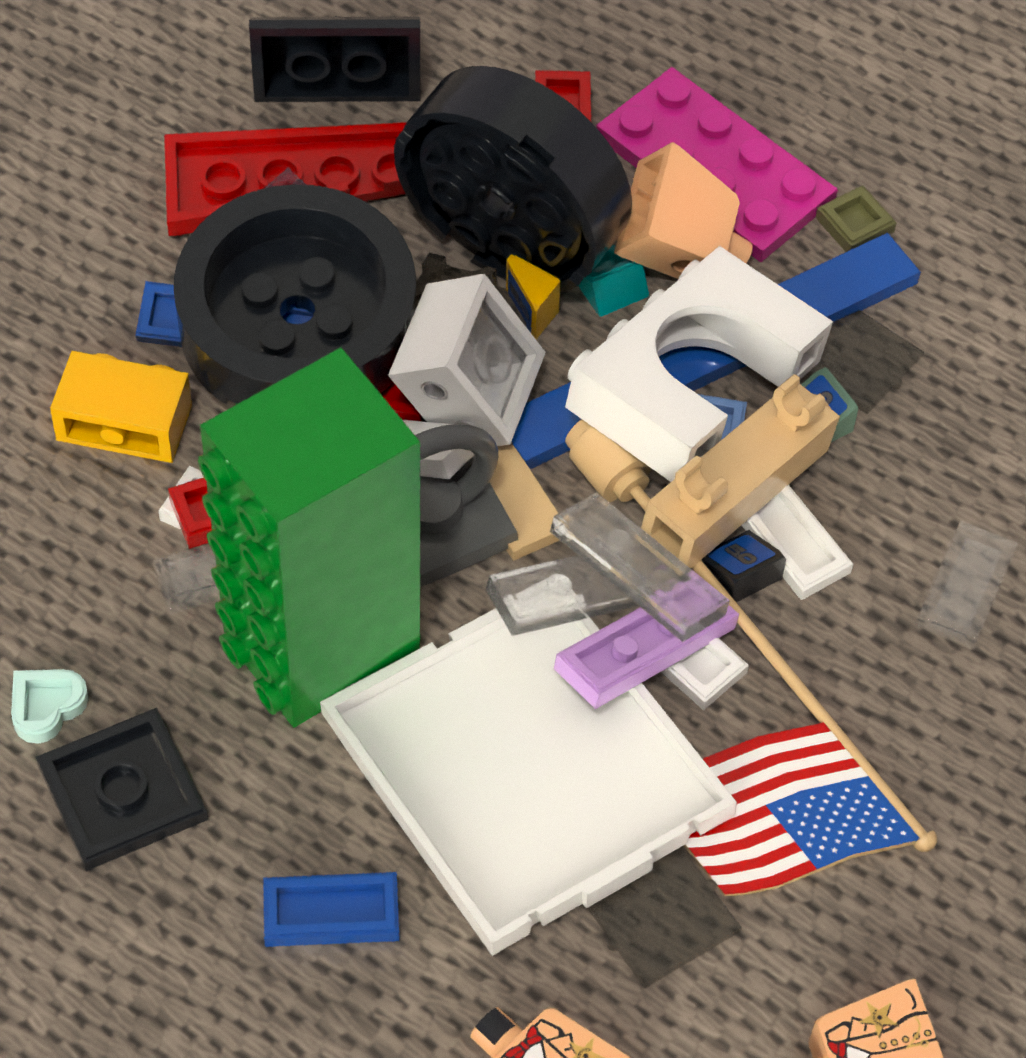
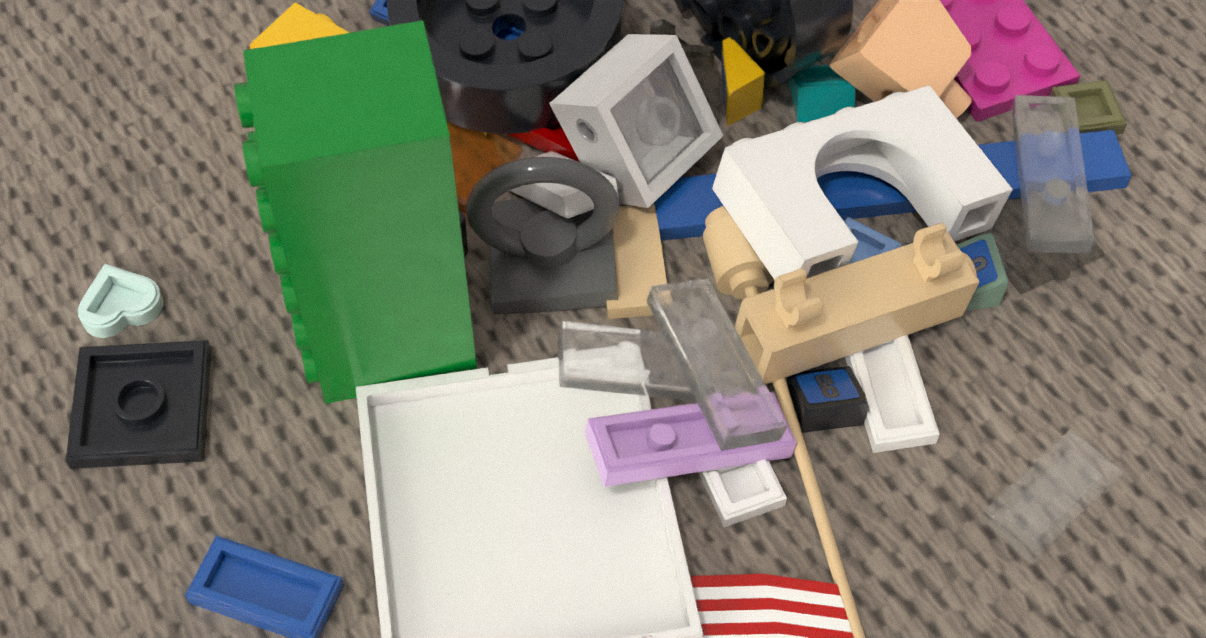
camera: 25 degrees right, 0 degrees up
(852, 293) = (1052, 175): none -> clear tile

